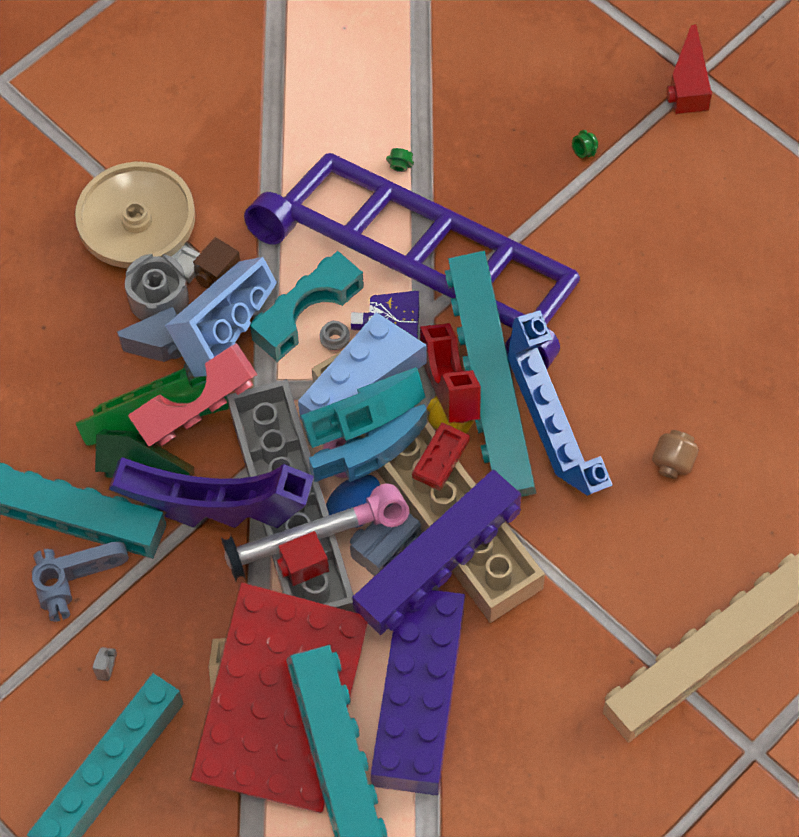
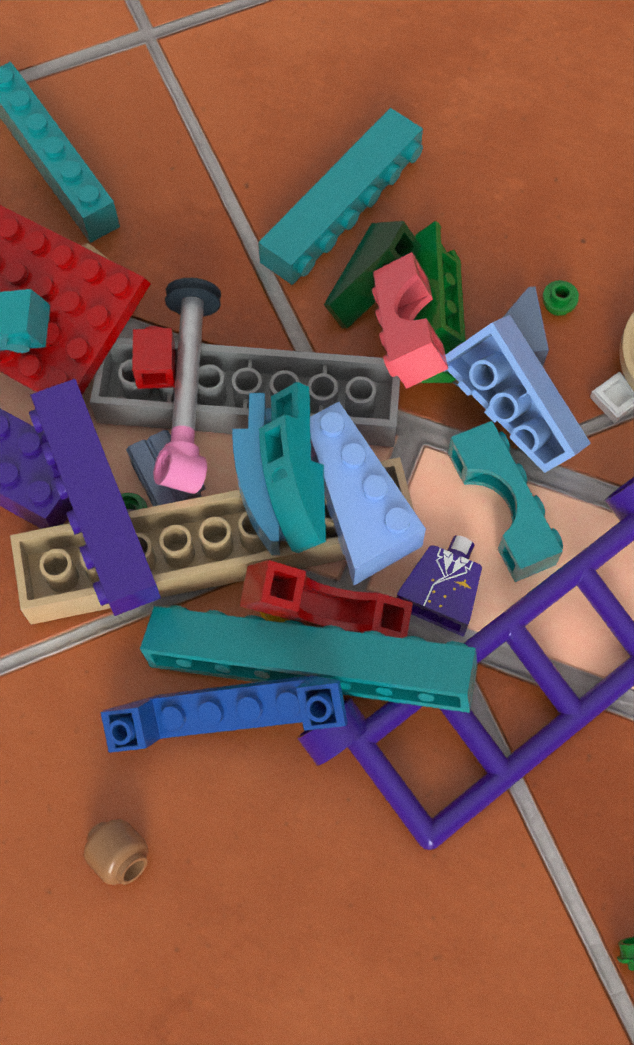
camera: 110 degrees right, 5 degrees up
(68, 568) = (267, 161): sand blue piece -> none
(104, 663) = (161, 181): light grey tile -> none
(109, 330) = (557, 305): none -> green plate
(155, 285) = (583, 345): light grey brick -> none
(189, 499) = (236, 332): dark purple arch -> none
(214, 262) = (600, 421): reddish brown brick -> none
(334, 328) = (454, 510): light grey plate -> none
(351, 494) = (217, 448): blue dish -> none
(440, 456) = (213, 546): red plate -> none

